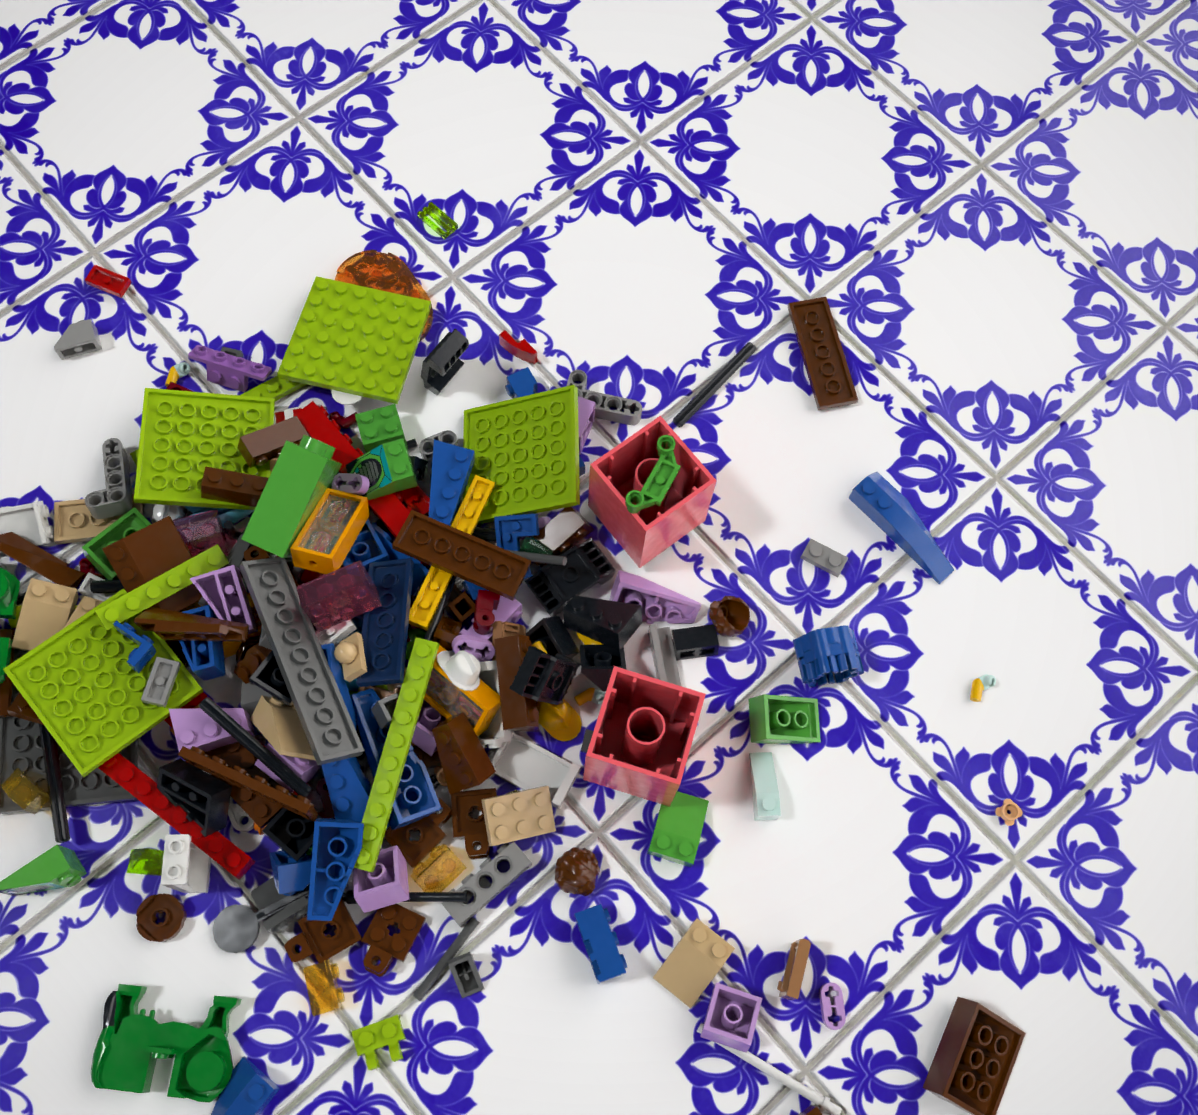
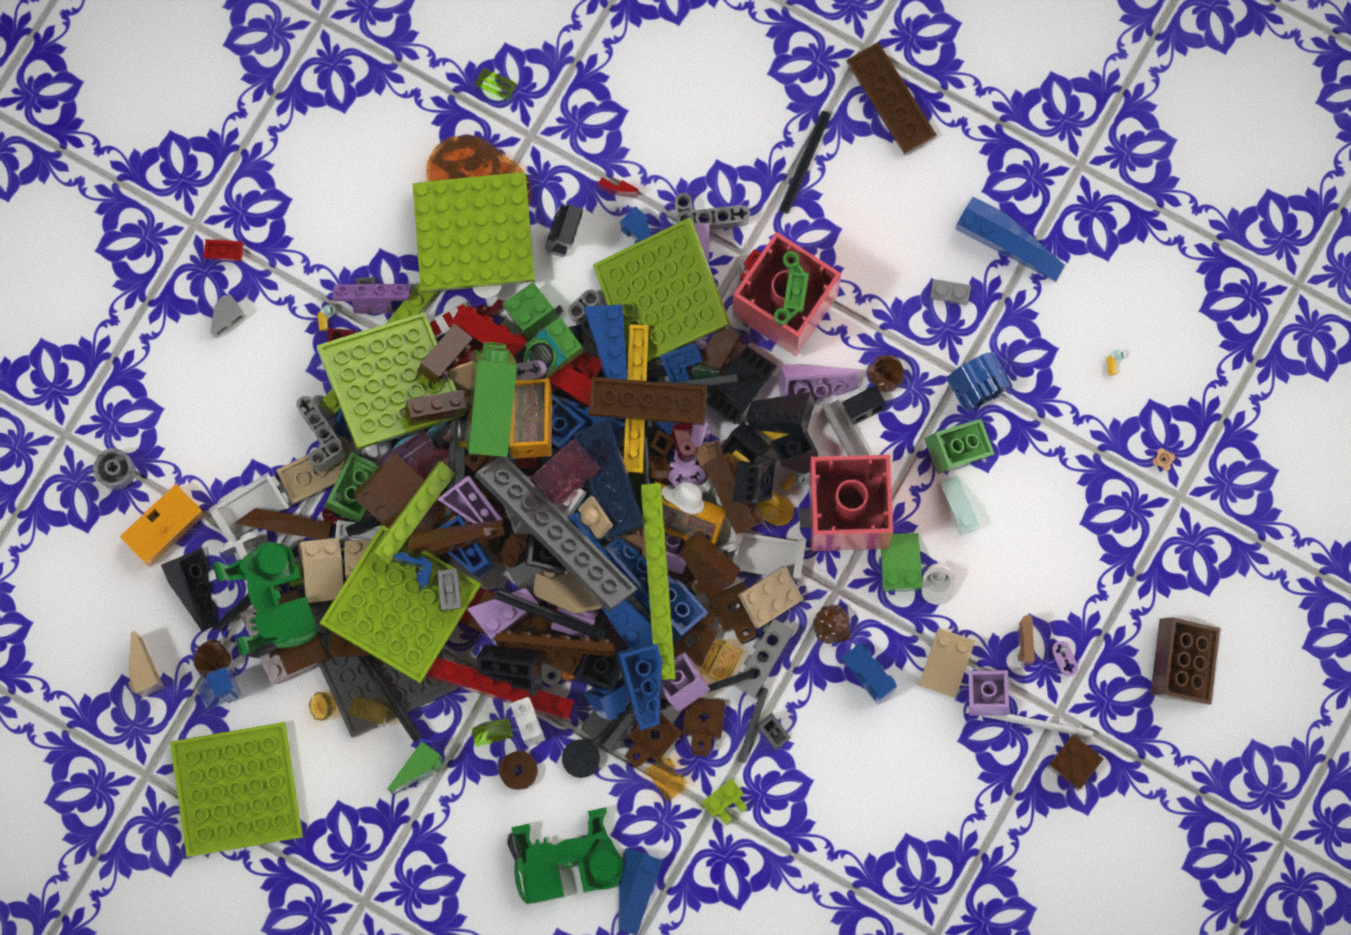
camera: 10 degrees left, 10 degrees up
(384, 710) = (637, 552): dark grey panel -> none
(712, 866) = (937, 584): none -> white piece

